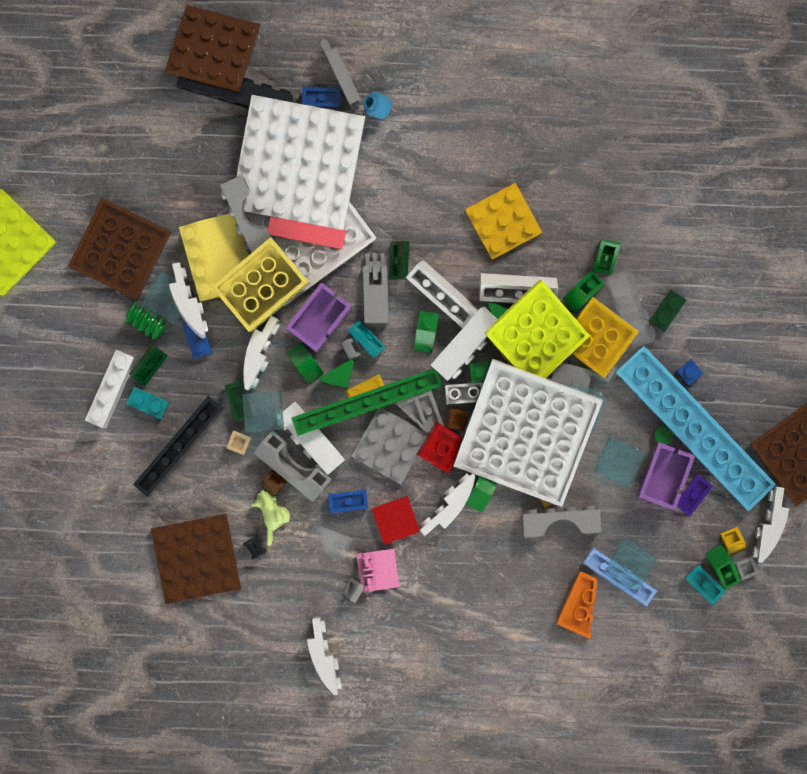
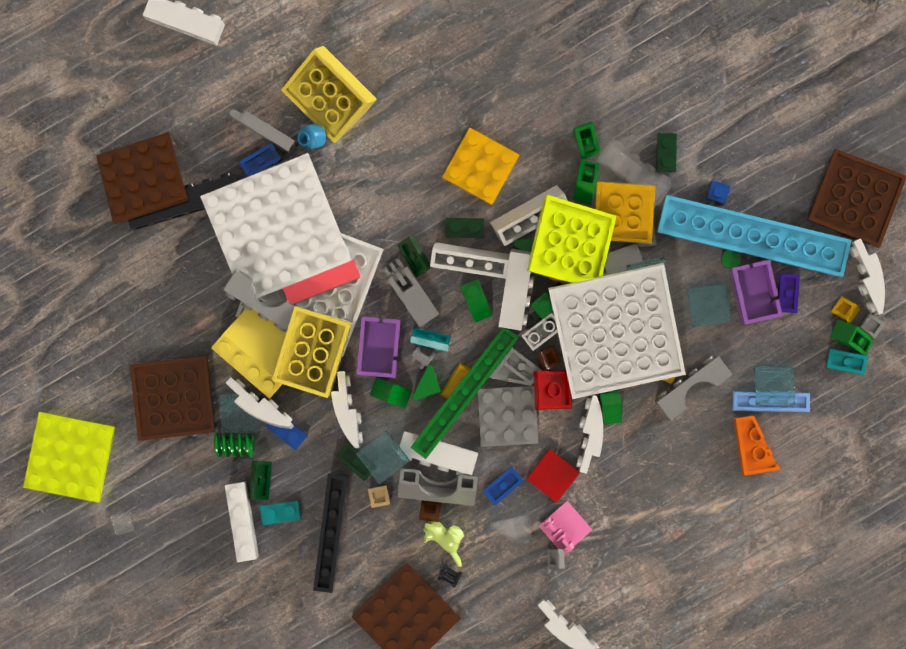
camera: 30 degrees left, 0 degrees up
(415, 78) = (328, 93): none -> light yellow slope
(456, 264) = (465, 227): none -> dark green plate

